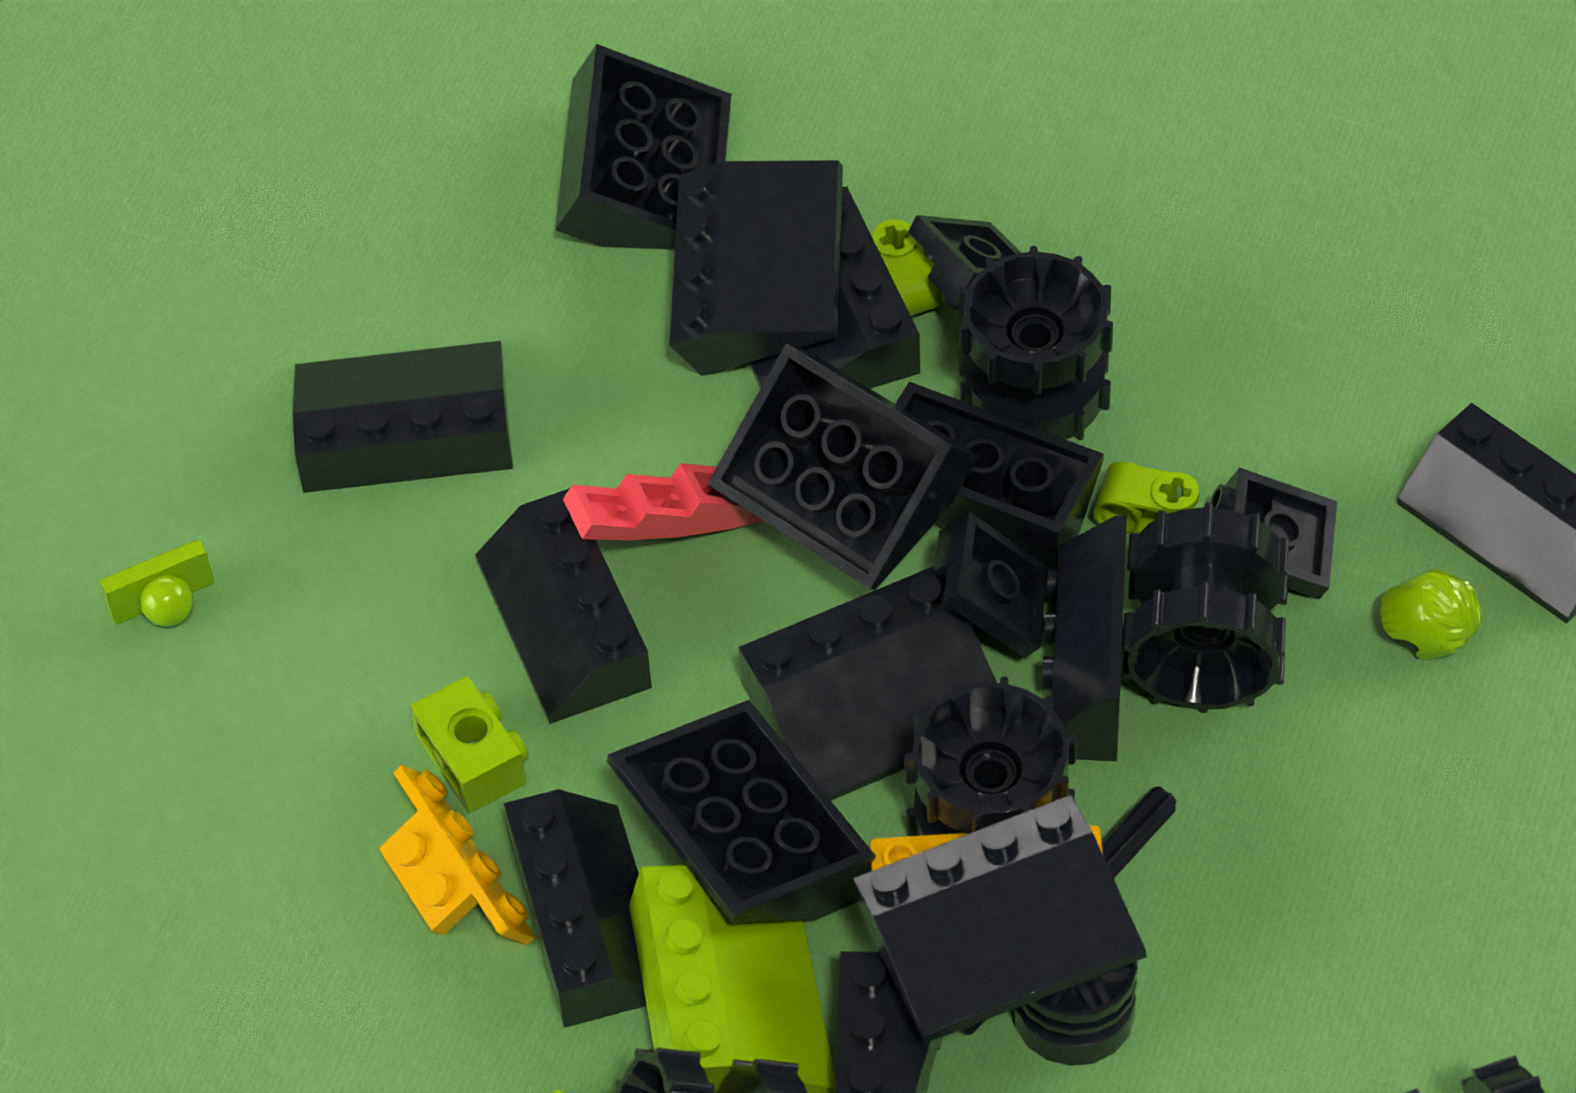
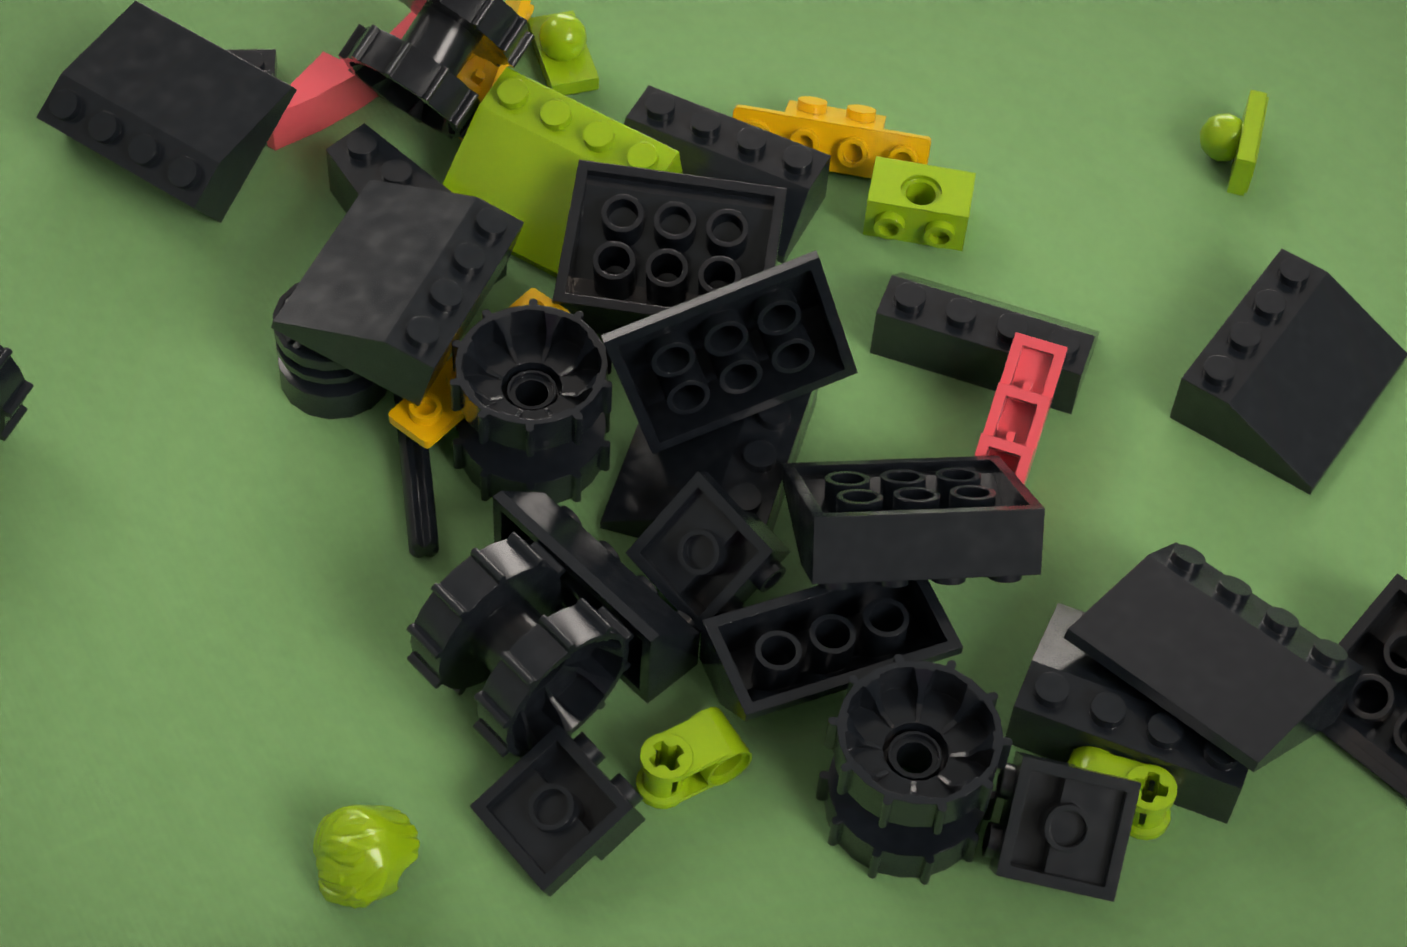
camera: 125 degrees right, 0 degrees up
(832, 640) = (731, 352): none -> black slope

